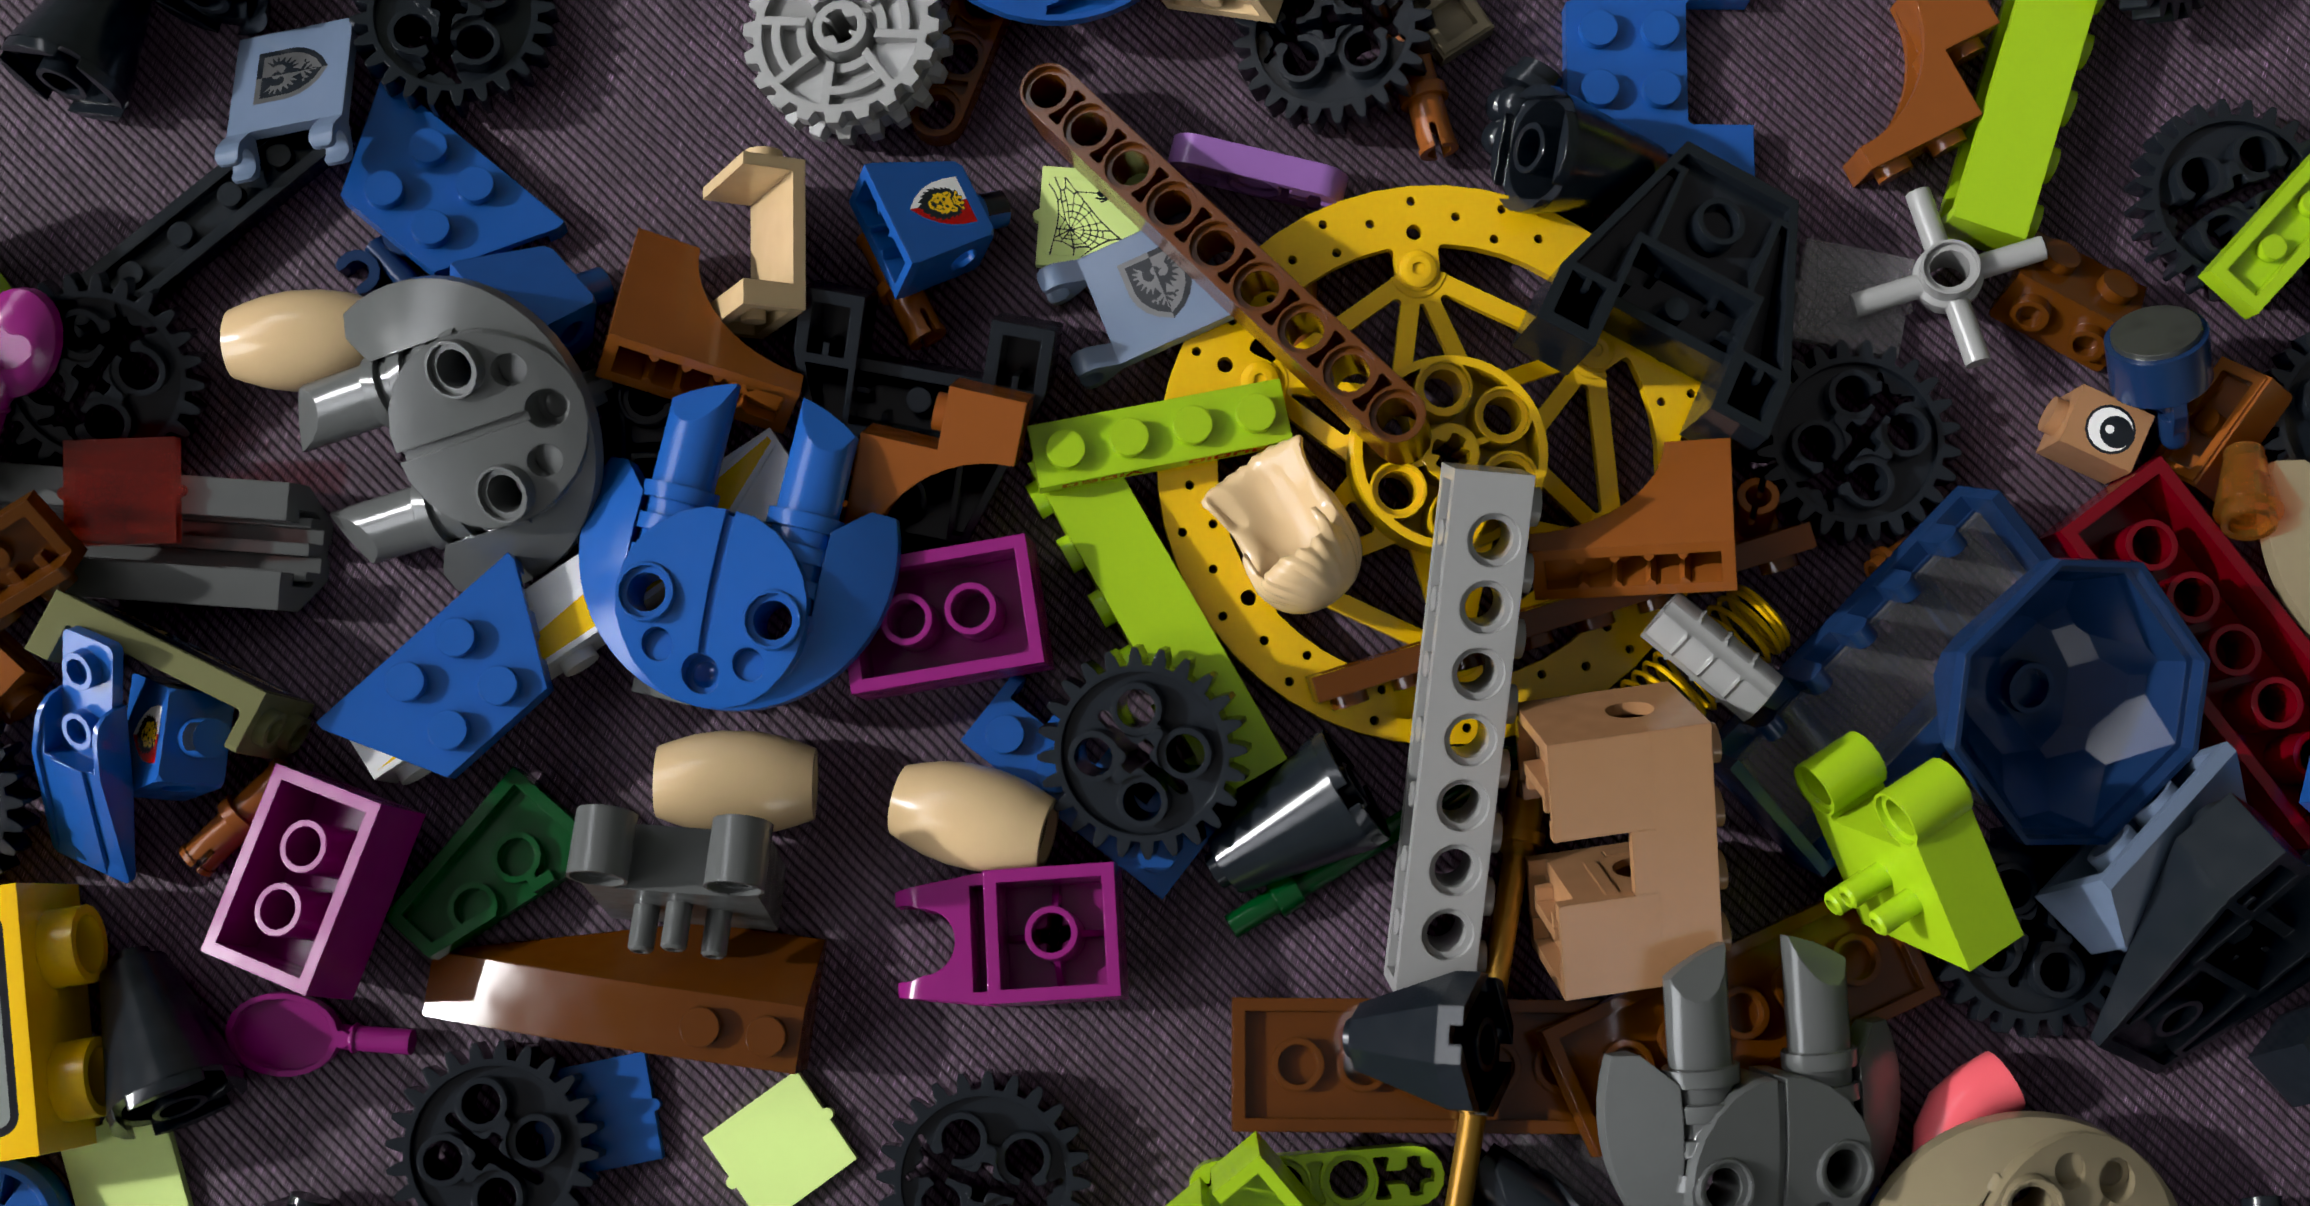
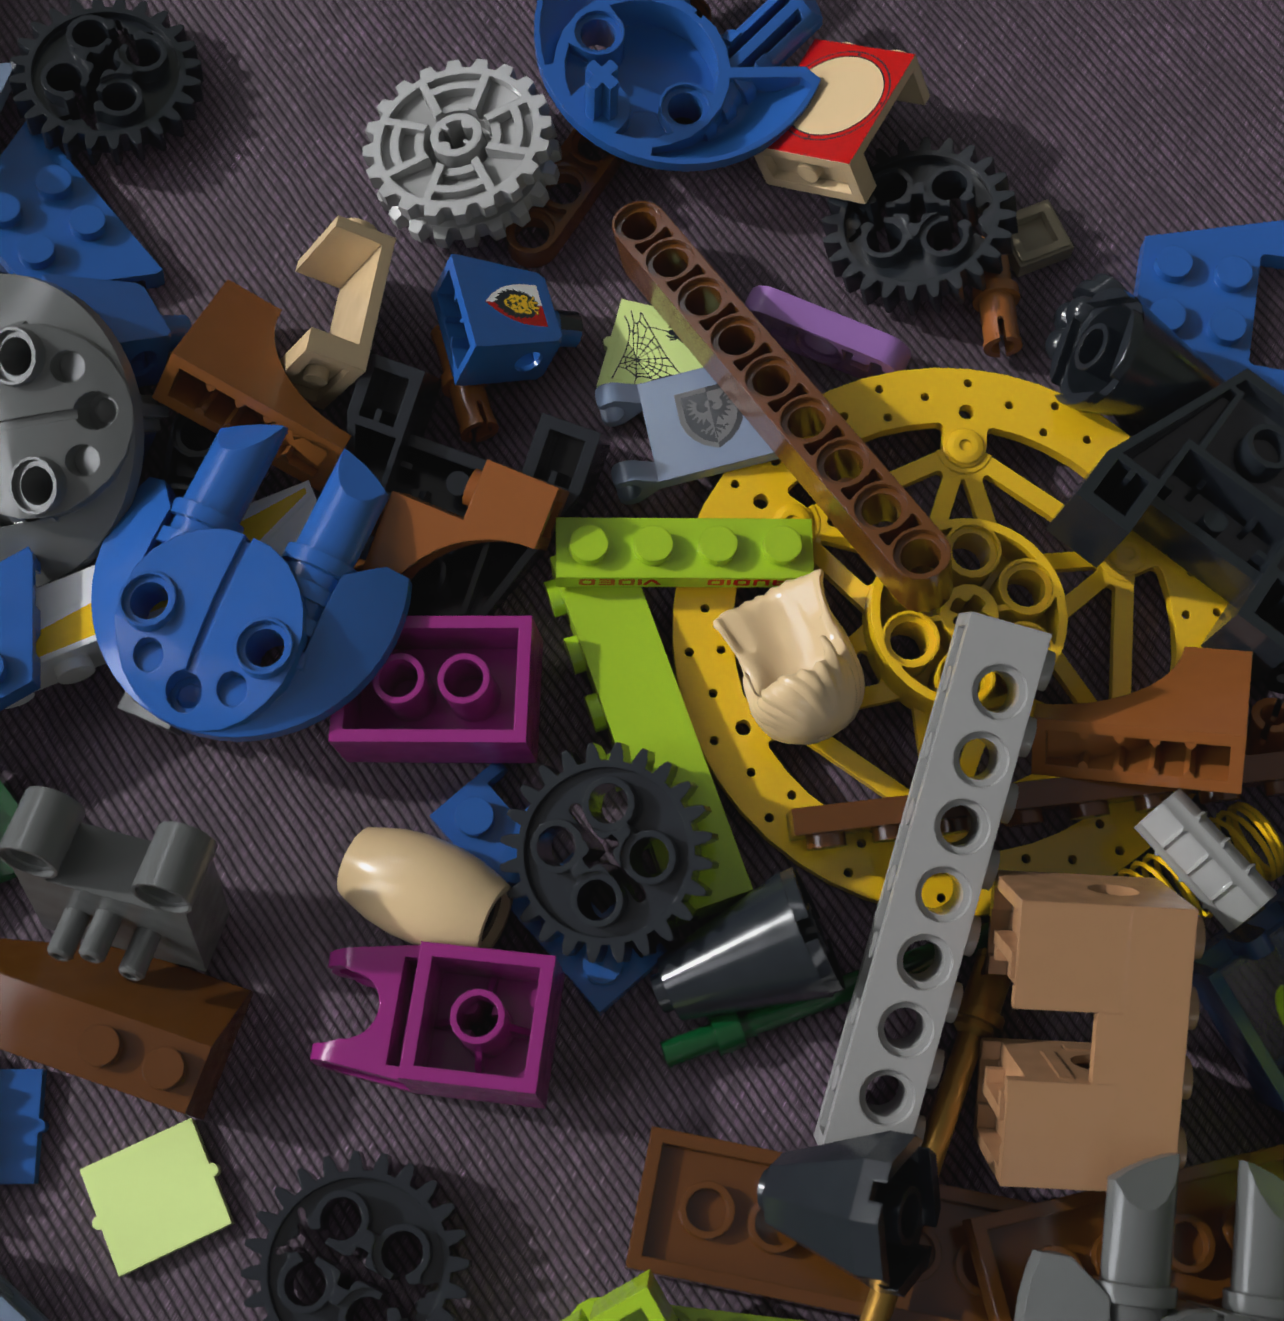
camera: 10 degrees right, 10 degrees down
(735, 775) = (214, 797): tan piece -> none

